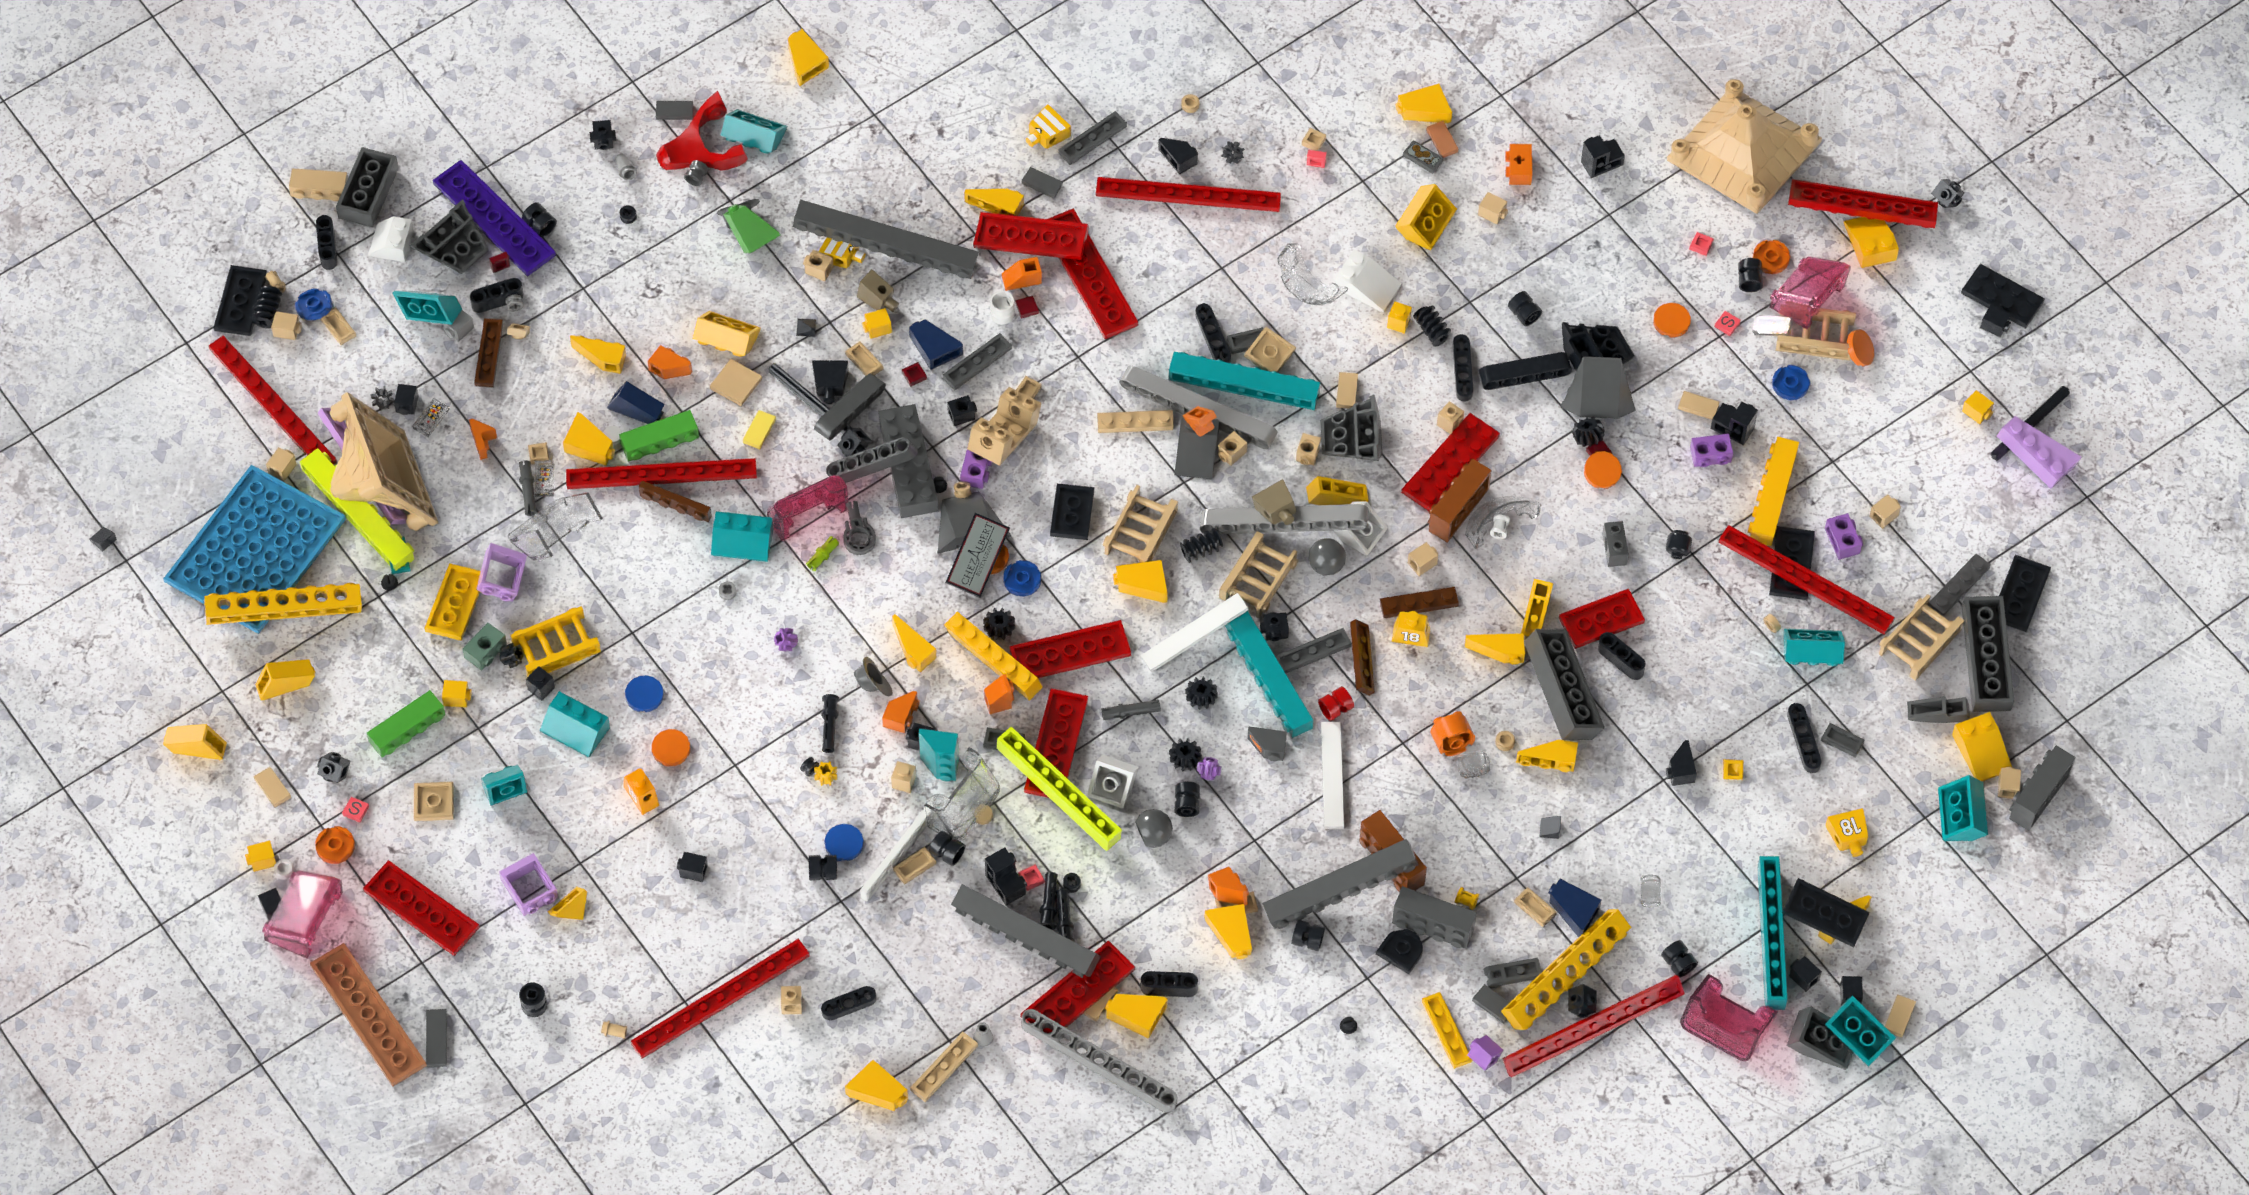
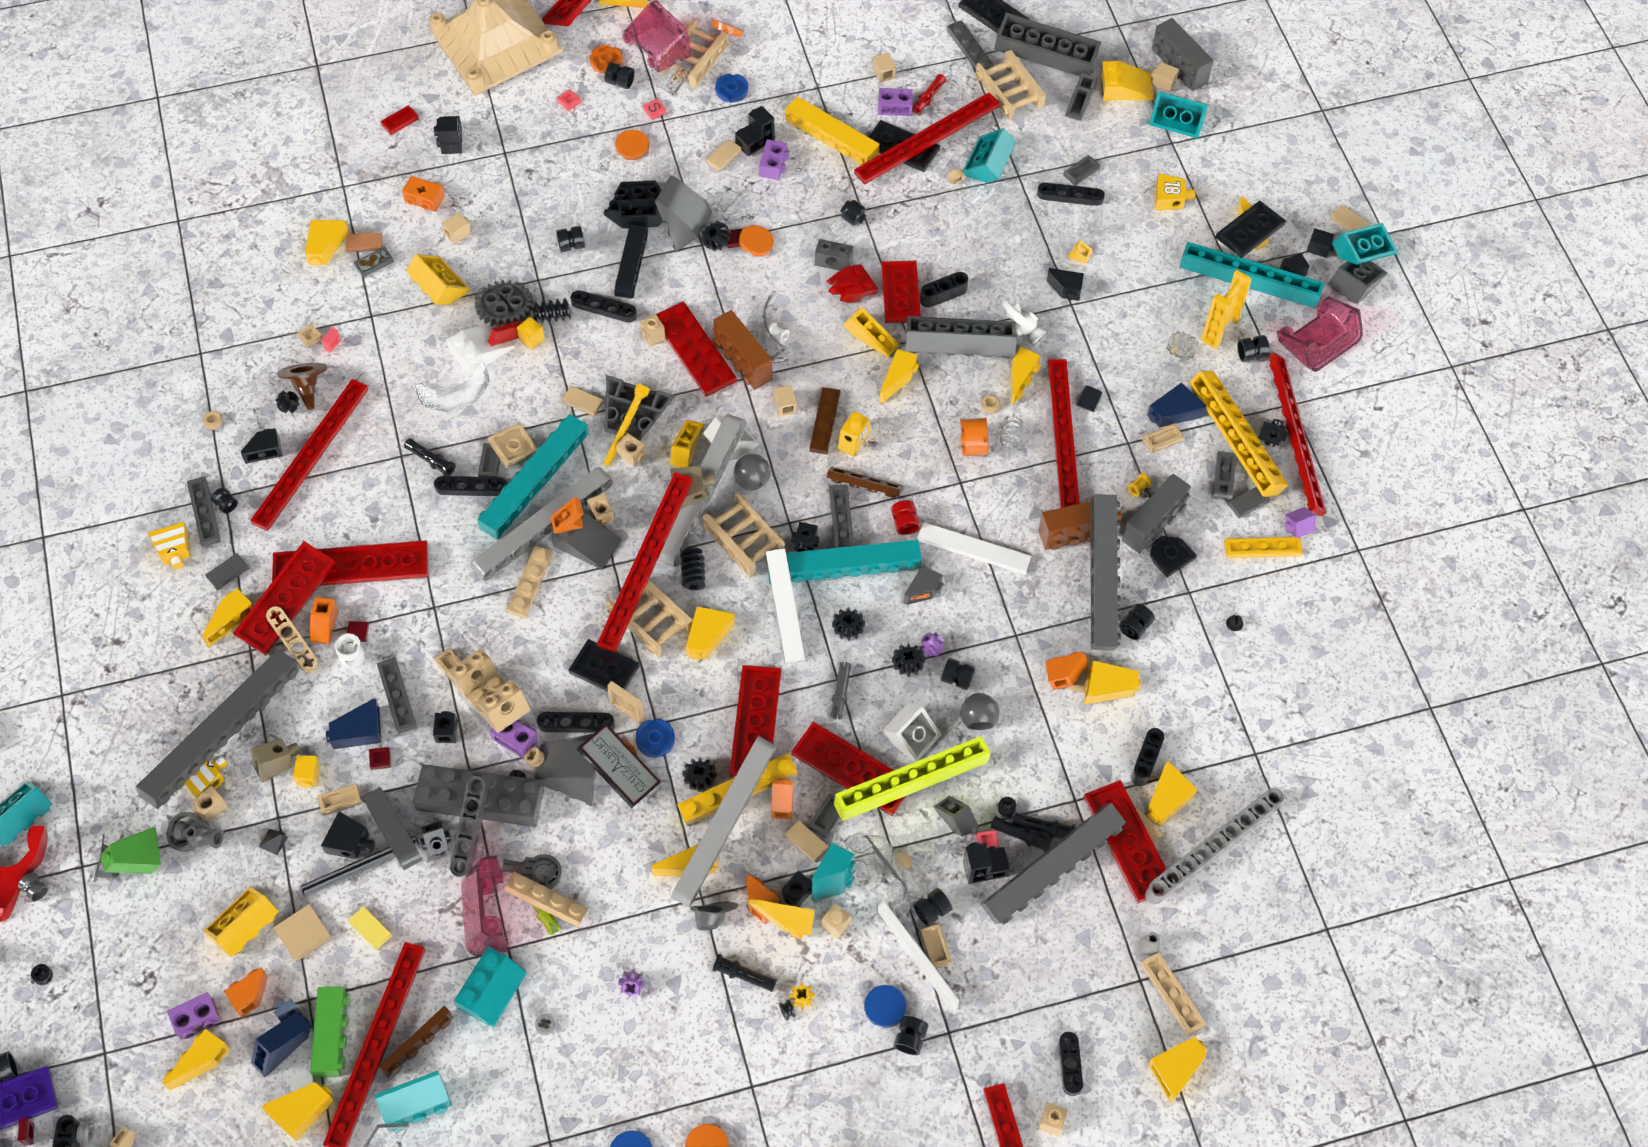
camera: 70 degrees left, 0 degrees up
(624, 517) = (414, 1100): none -> slope
(637, 332) = (192, 1010): none -> medium lavender brick
(664, 396) = (286, 1009): none -> sand blue tile
(787, 267) = (196, 834): none -> dark grey piece
(833, 547) = (545, 899): none -> tan plate
(888, 736) = (788, 918): none -> yellow slope
(952, 650) = (723, 822): none -> light grey beam
(972, 730) = (806, 841): none -> tan tile
(991, 258) = (294, 638): none -> tan beam
(1010, 510) = (576, 718): none -> black beam
(1040, 538) = (626, 702): none -> tan tile
(1043, 842) = (956, 815): none -> dark grey slope
(1109, 149) = (224, 500): none -> black wheel
(1181, 497) = (644, 562): none -> red plate
(1225, 296) = (435, 460): none -> black pin
(1264, 152) = (304, 380): none -> reddish brown piece
(1366, 430) = (640, 393): none -> yellow piece
(1384, 293) = (504, 333): none -> red tile
(1409, 274) = (514, 303): none -> dark grey gear
(1496, 814) = (1063, 433): none -> red plate
(1590, 572) = (852, 284): none -> red plate
(1603, 108) = (399, 120): none -> red tile
(1611, 737) = (1025, 322): none -> white piece
(1684, 902) = (1226, 309): none -> yellow fence
(1872, 565) = (926, 97): none -> red pin

